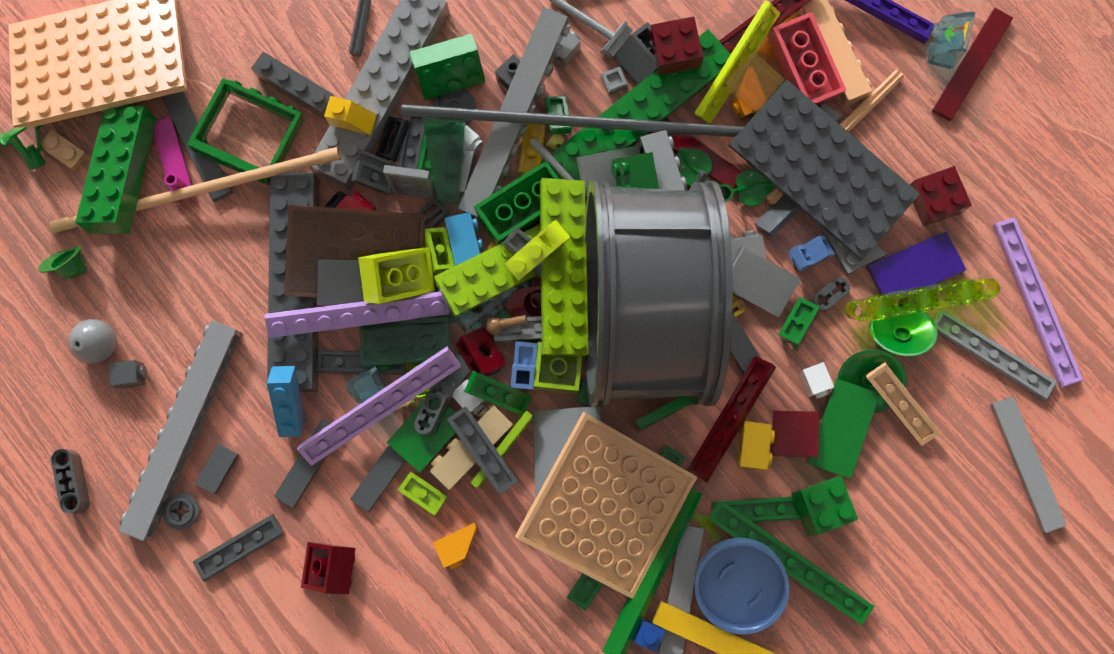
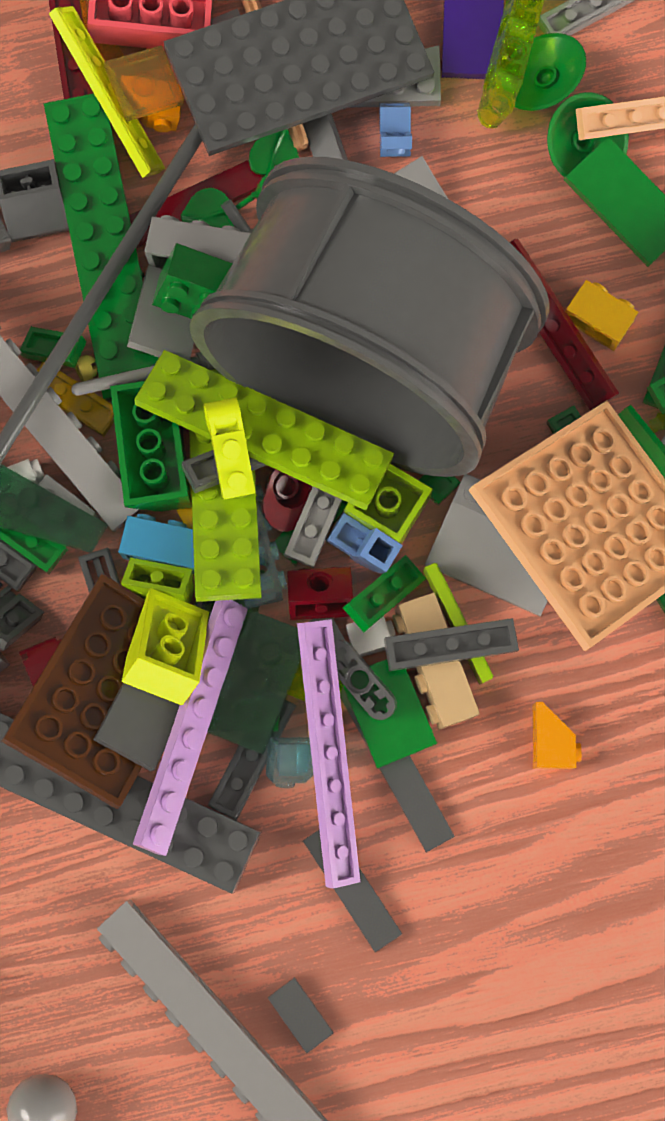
camera: 65 degrees left, 0 degrees up
(127, 374) = (110, 1081): dark grey brick -> none
(173, 503) = (319, 1094): dark grey gear -> none
(238, 547) = (420, 1032): dark grey tile -> none
(286, 401) = (261, 872): dark azure brick -> none
(328, 568) = (504, 922): dark red slope -> none
(336, 199) = (17, 686): black tile -> none
(410, 181) = (47, 572): light grey tile -> none
(422, 493) = (464, 753): lime plate -> none
(495, 325) = (294, 554): medium nougat bar -> none
(614, 80) = (42, 256): light grey tile -> none
(662, 413) = (509, 409): green tile -> none
(676, 45) = (48, 149): dark red brick -> none
(796, 433) = (609, 258): dark red tile -> none
(799, 323) = (475, 186): green hinge -> none
(816, 380) = (555, 202): white brick -> none
(833, 298) = (462, 133): dark grey beam -> none

